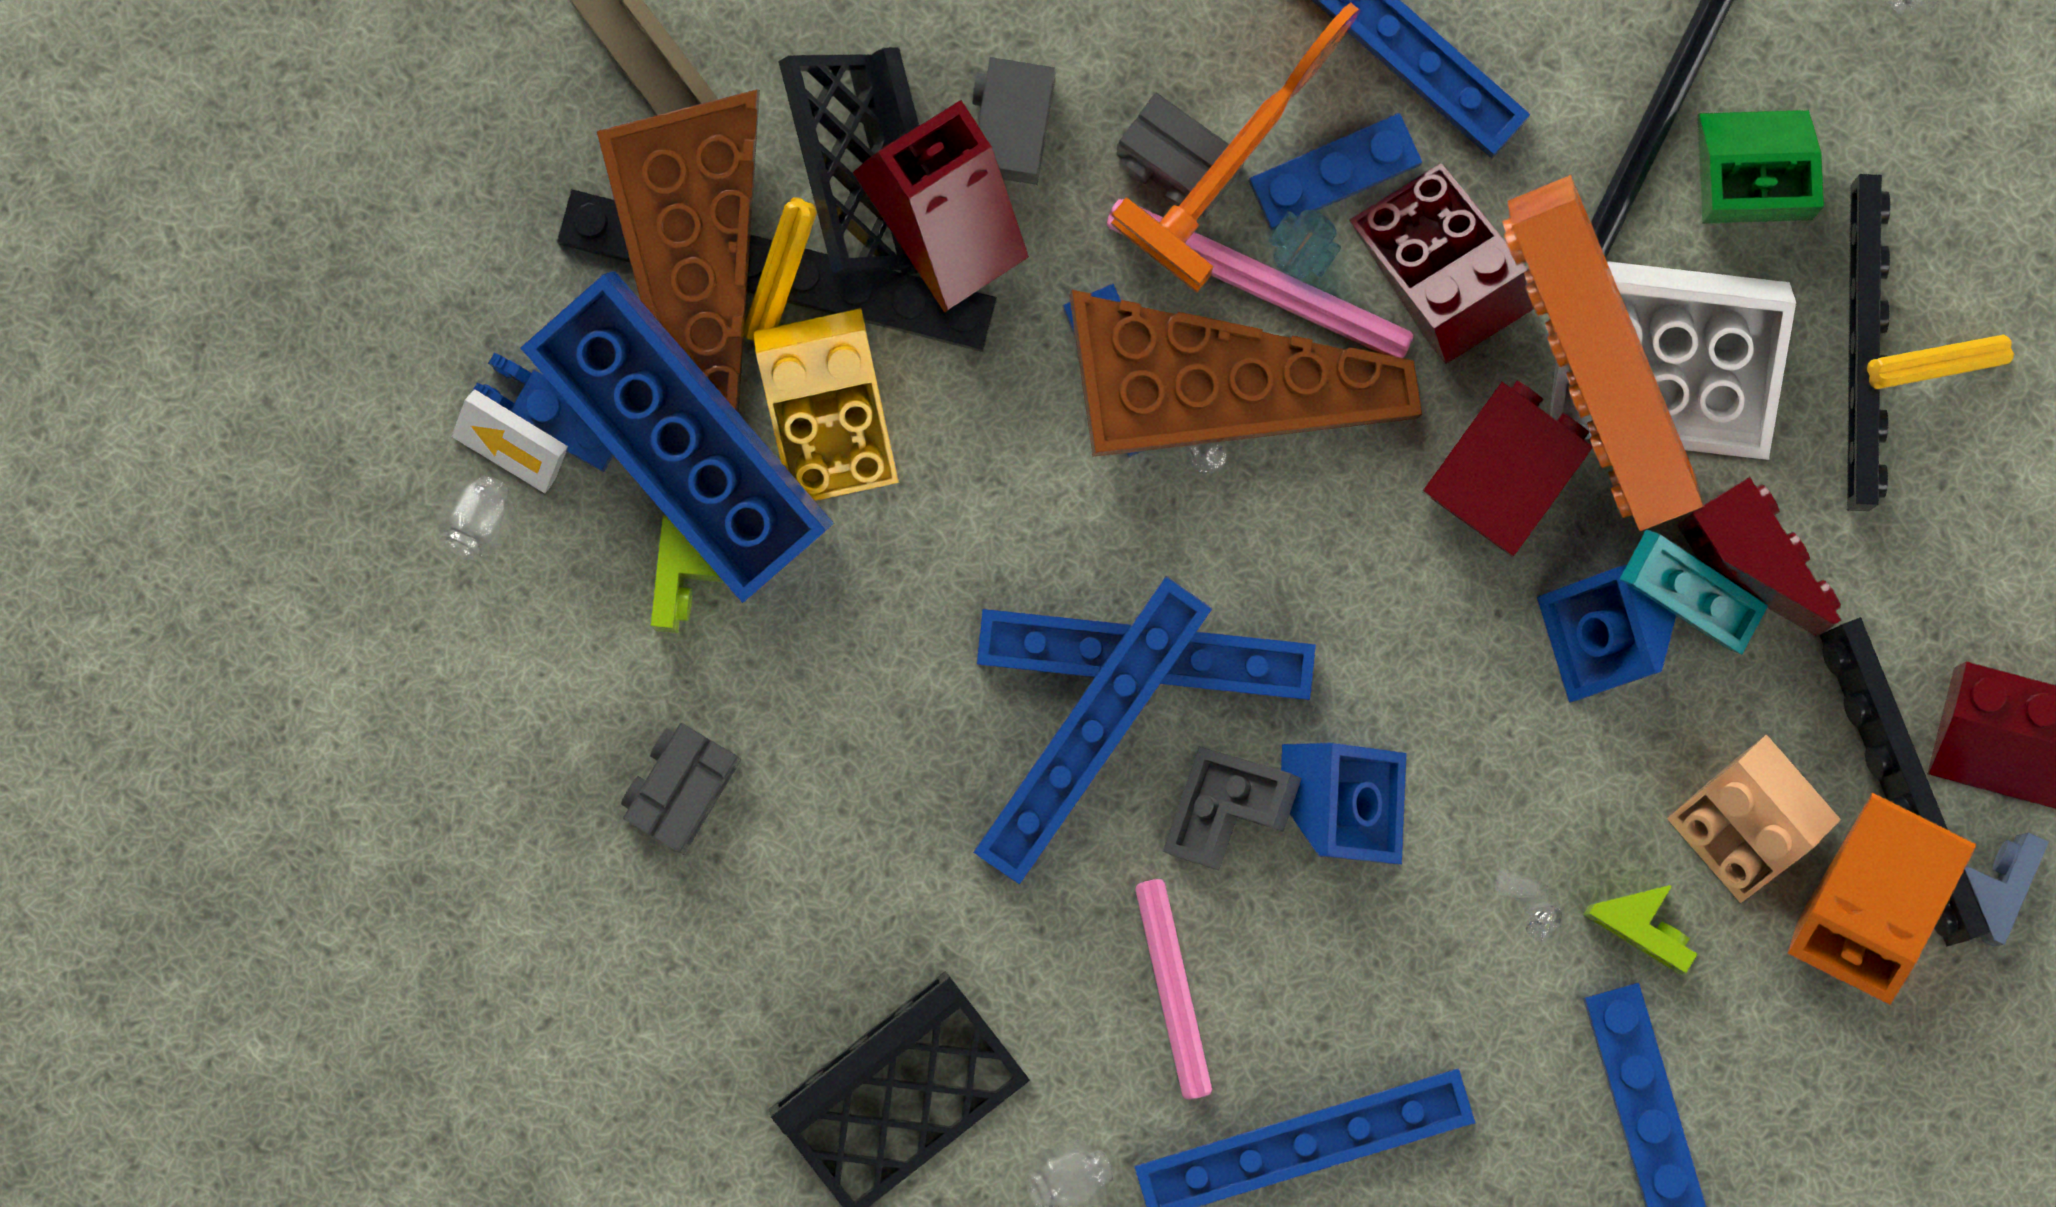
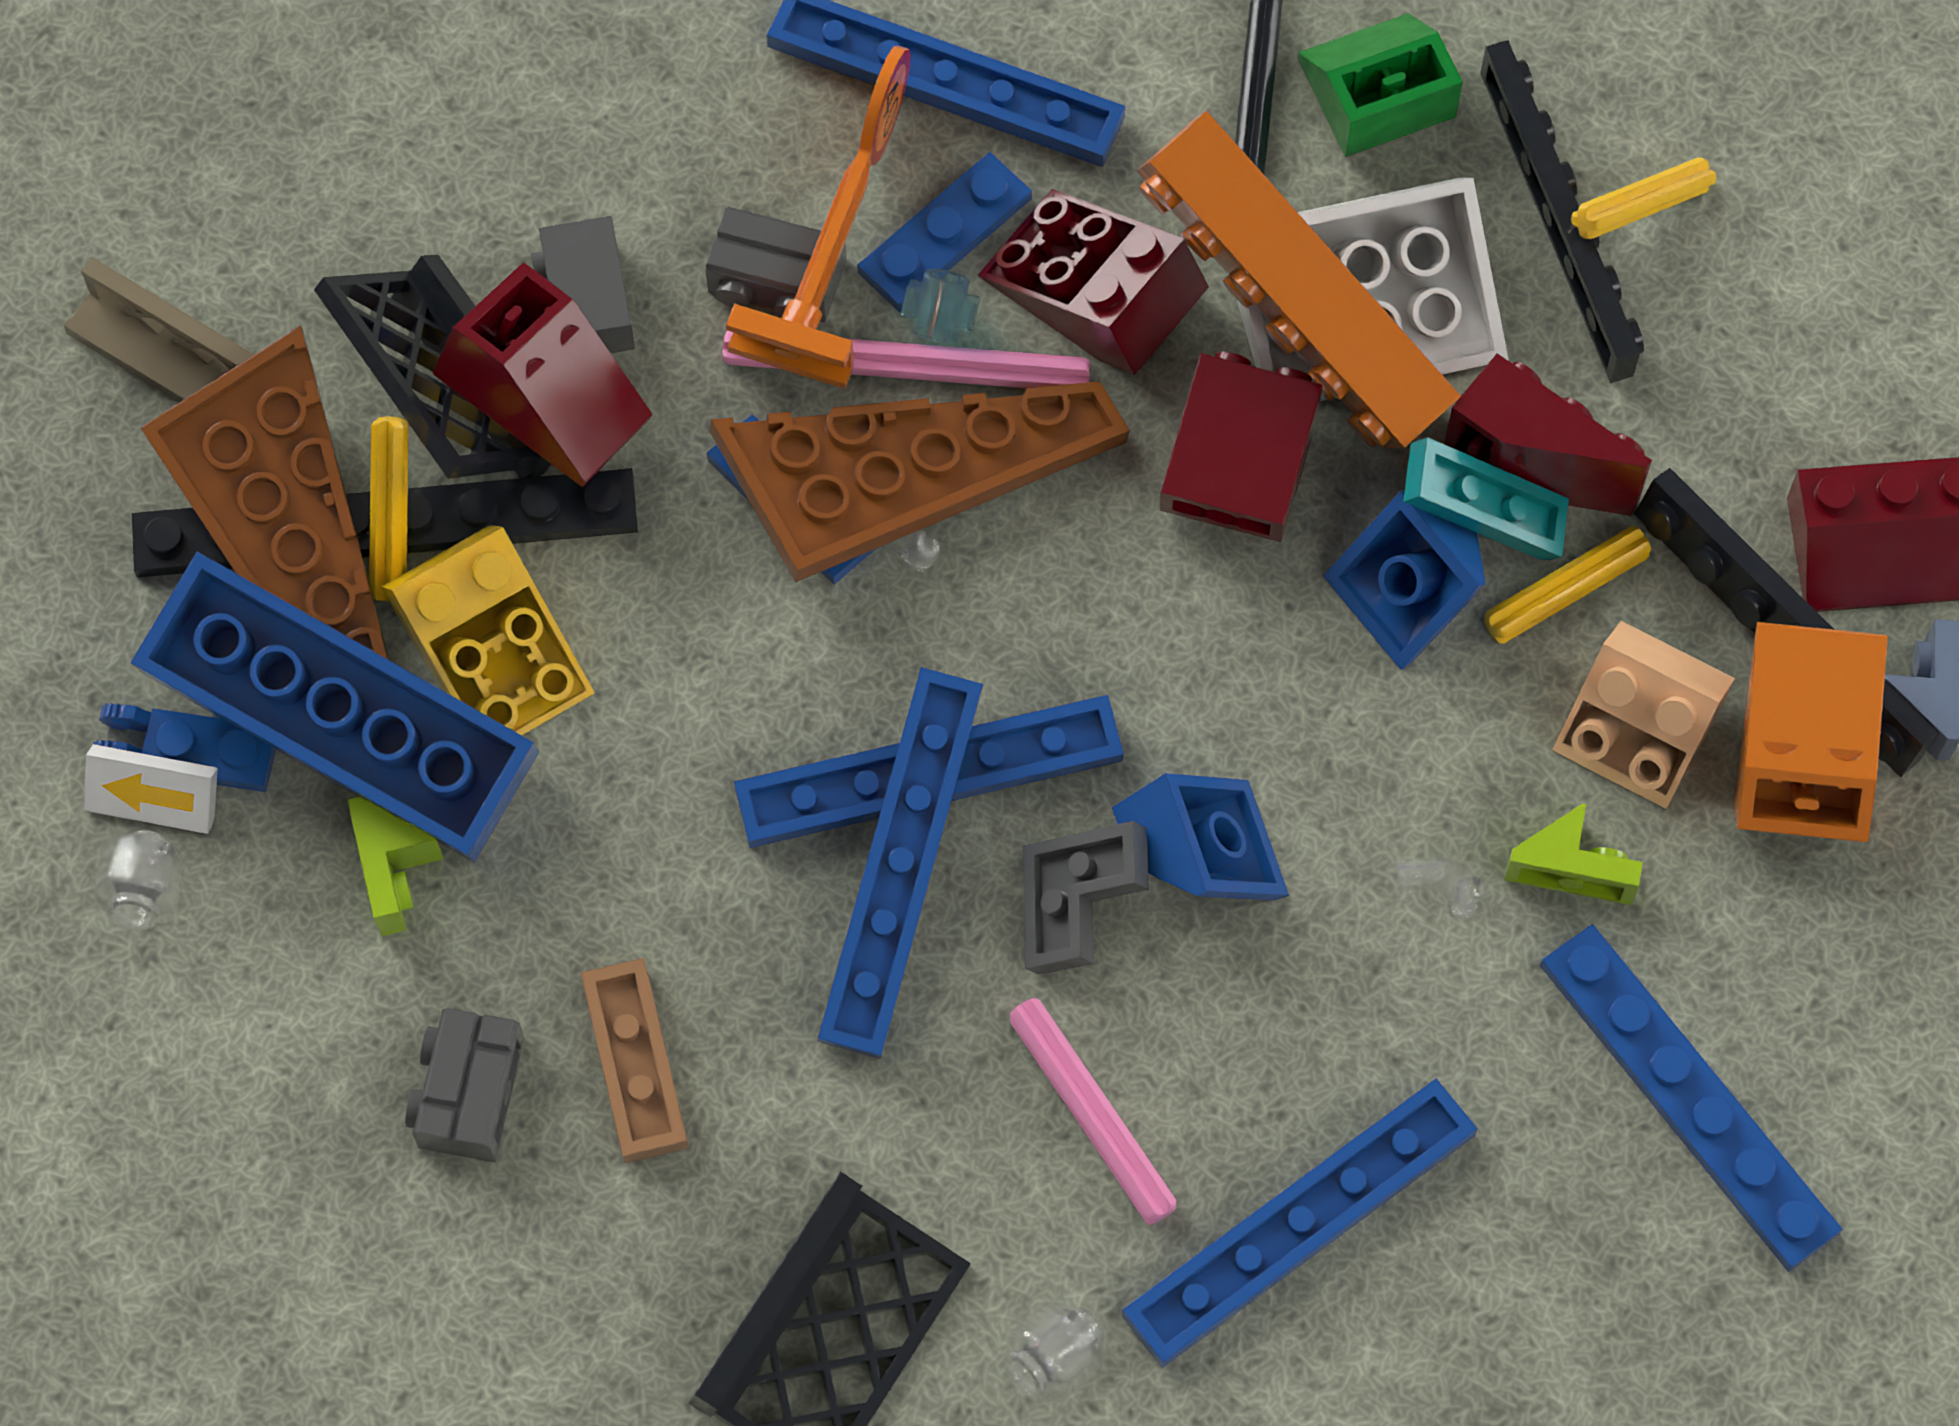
camera: 25 degrees left, 15 degrees down
(821, 814) = (634, 1060): none -> medium nougat plate
(1737, 680) = (1567, 584): none -> yellow axle

